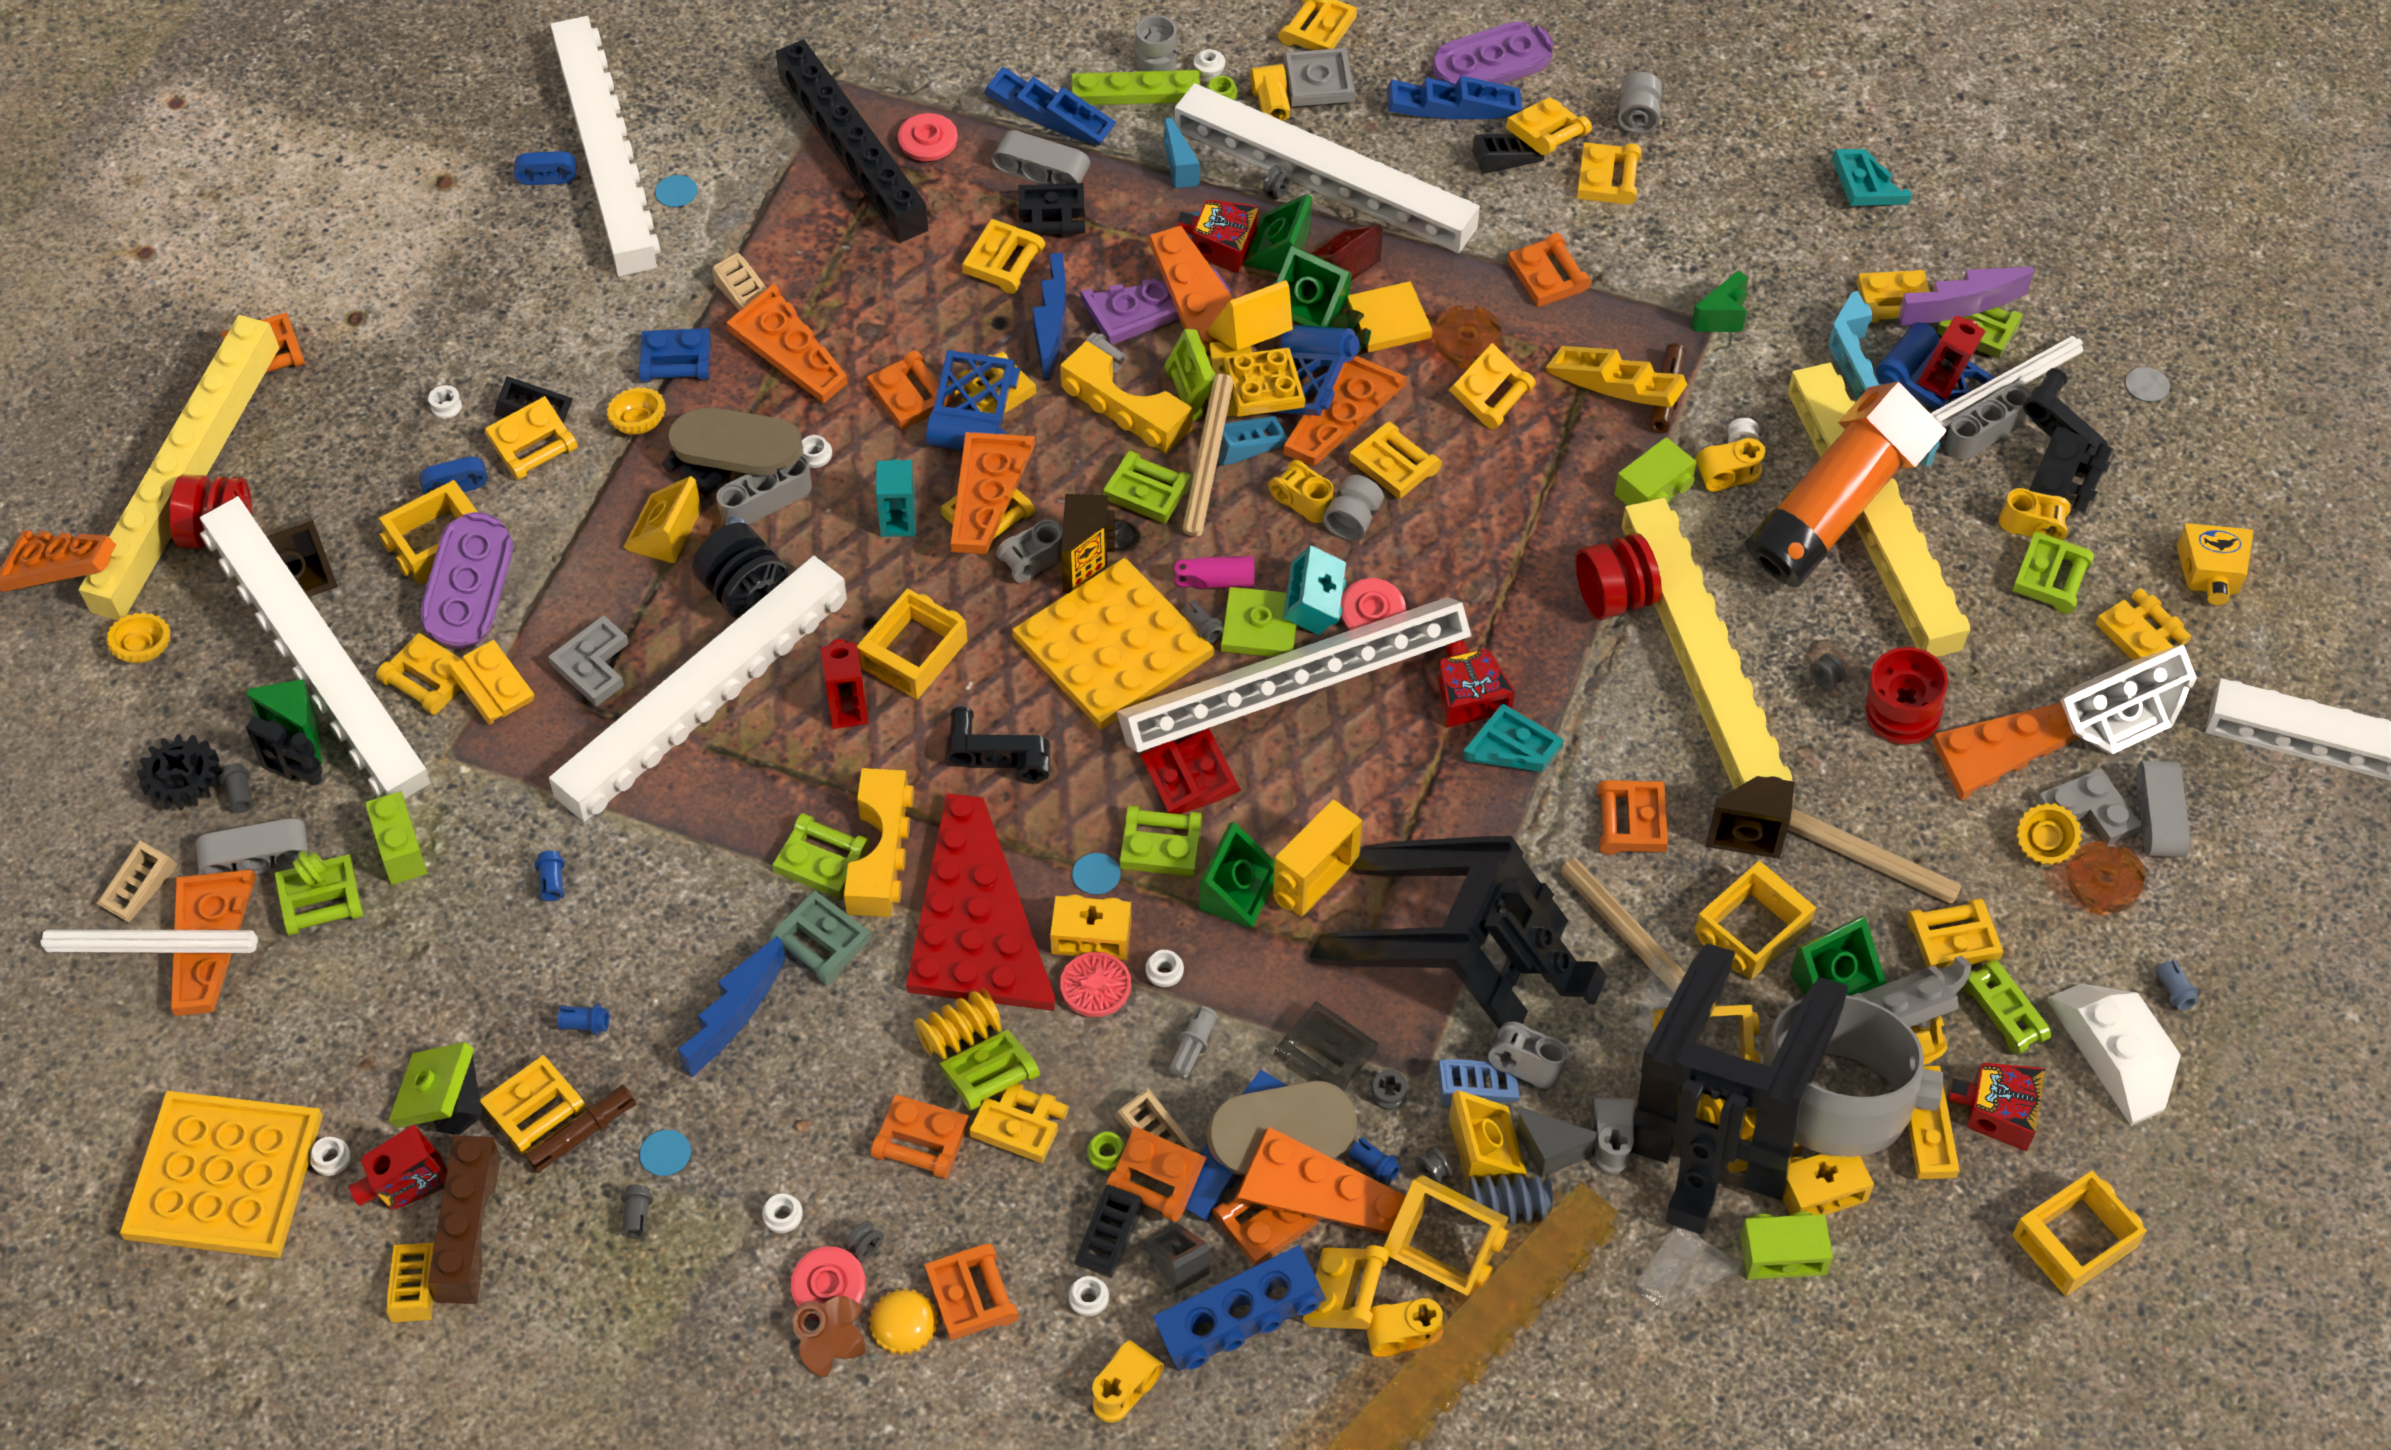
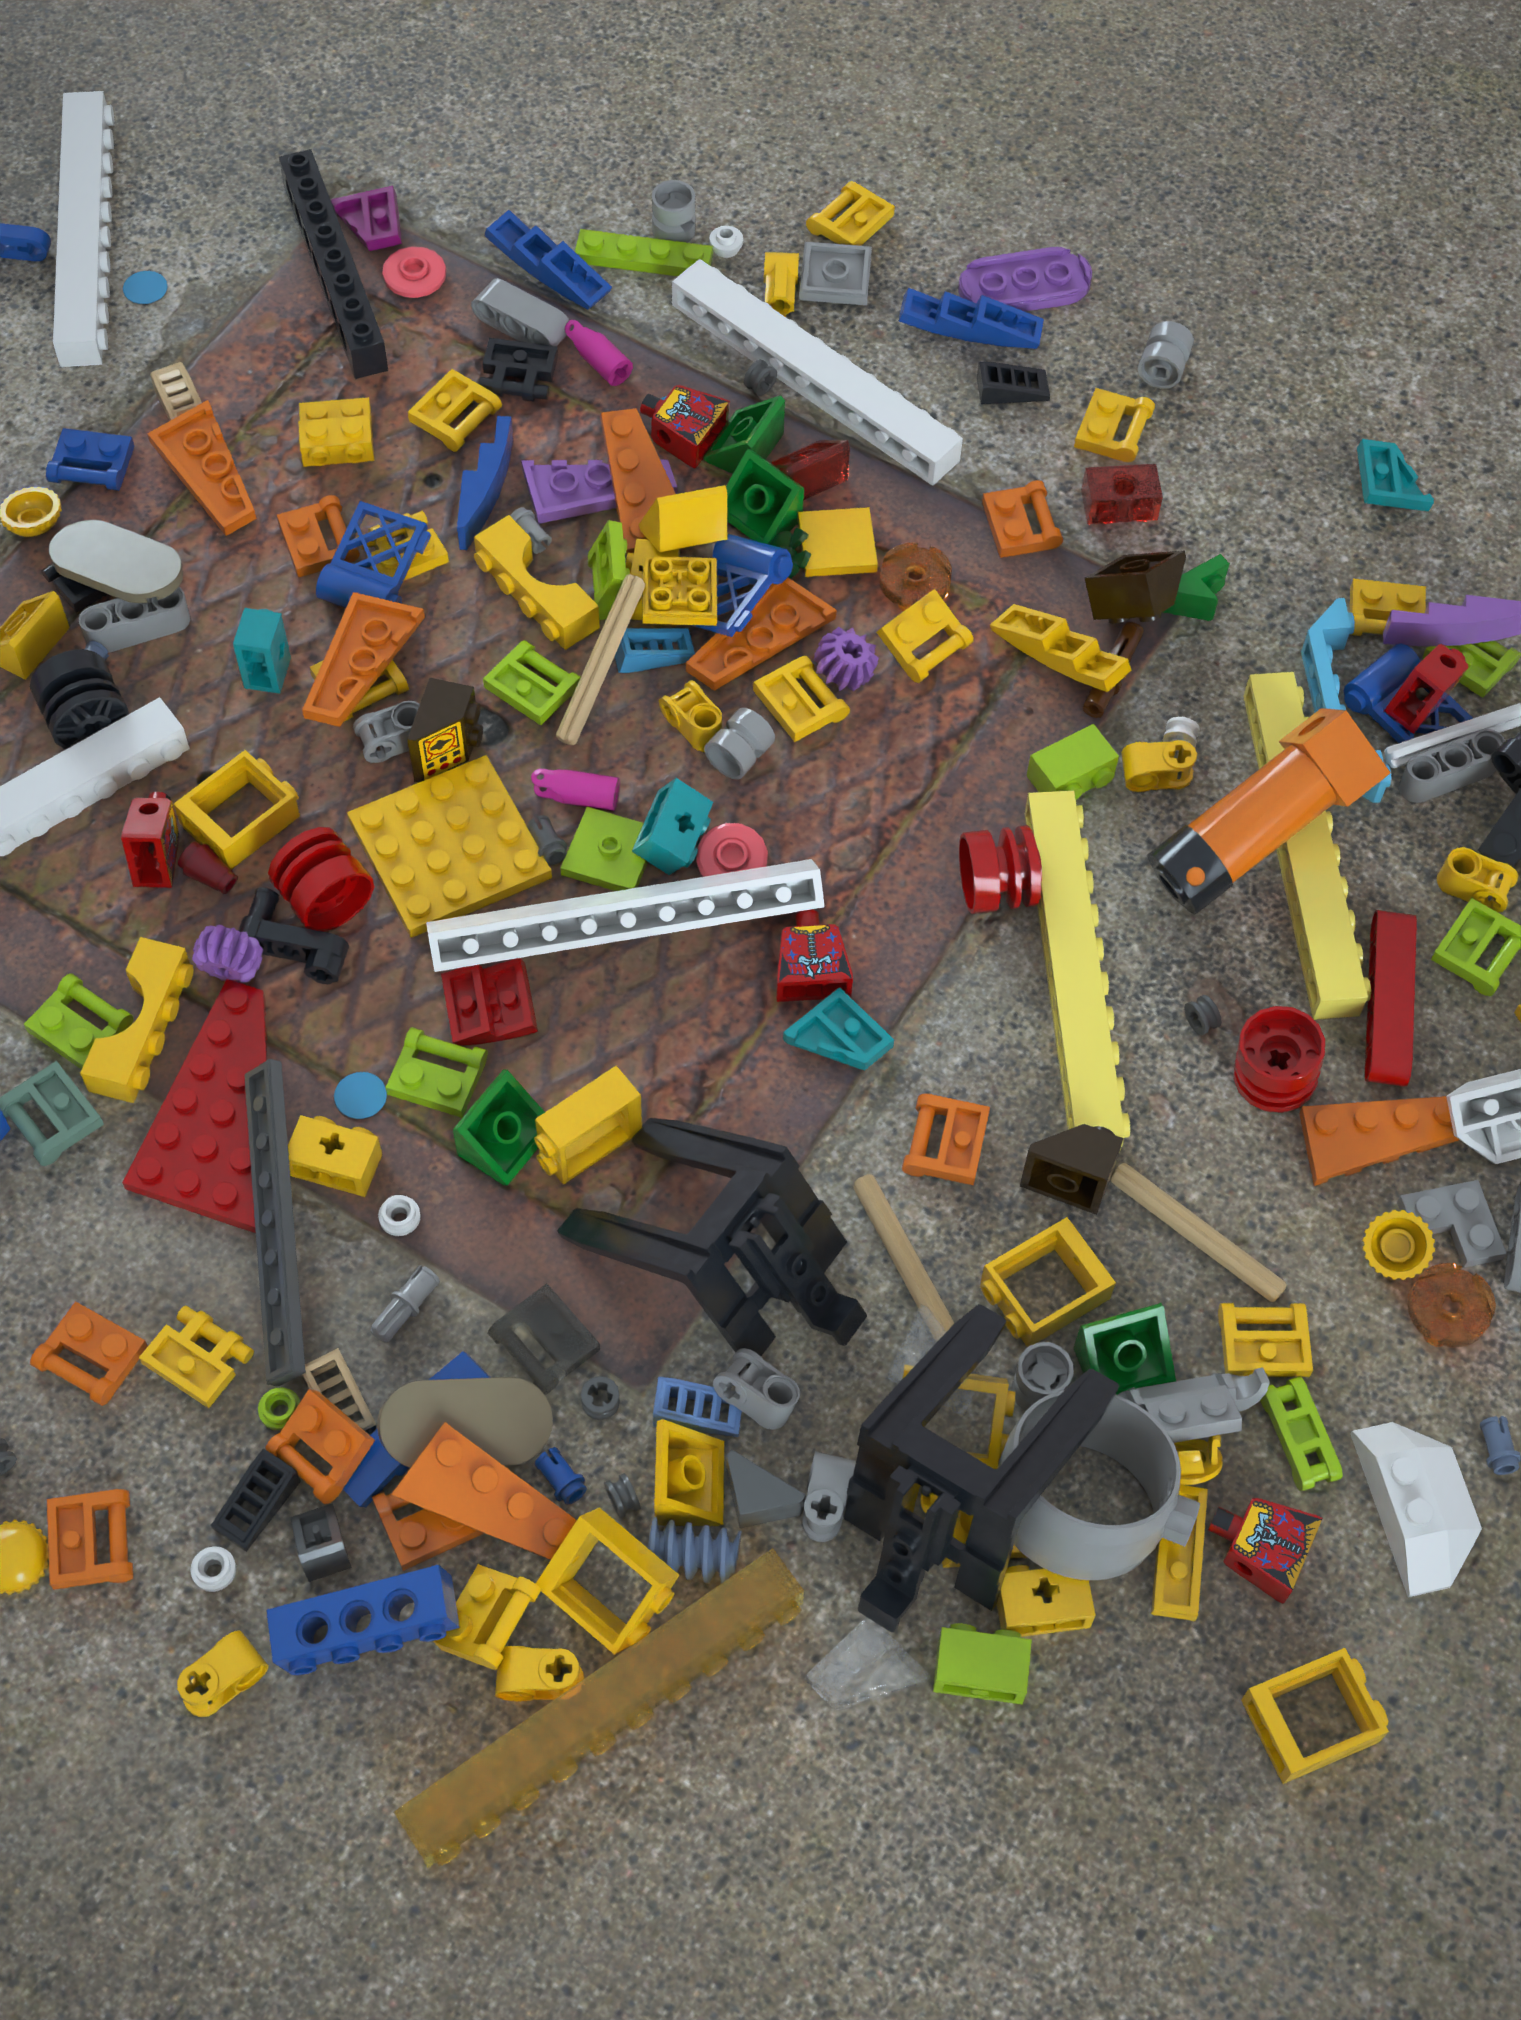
camera: 10 degrees right, 5 degrees up
(816, 444) = (200, 578): white plate -> none
(874, 93) = (371, 217): none -> magenta wing
(898, 293) = (335, 432): none -> yellow plate
(899, 699) = (207, 867): none -> dark red cone
(945, 769) = (227, 954): none -> medium lavender gear
(958, 1024) = (162, 1238): yellow piece -> none
(984, 1061) = (178, 1284): lime plate -> none
(1012, 689) = (321, 879): none -> red wheel
(1059, 992) = (274, 1224): none -> dark grey tile
(1095, 984) = (325, 1218): coral wheel -> none
(1123, 183) = (600, 353): none -> dark pink piece
(1181, 159) = (667, 343): dark azure slope -> none
(1223, 86) = (732, 268): lime plate -> none
(1427, 418) = (846, 659): none -> medium lavender gear
(1543, 118) = (1061, 363): yellow plate -> none
(1633, 232) = (1121, 494): none -> clear red brick
(1671, 311) = (1135, 586): none -> dark brown slope
(1771, 993) = (1040, 1372): none -> light grey wheel
(1990, 634) = (1392, 998): none -> red beam

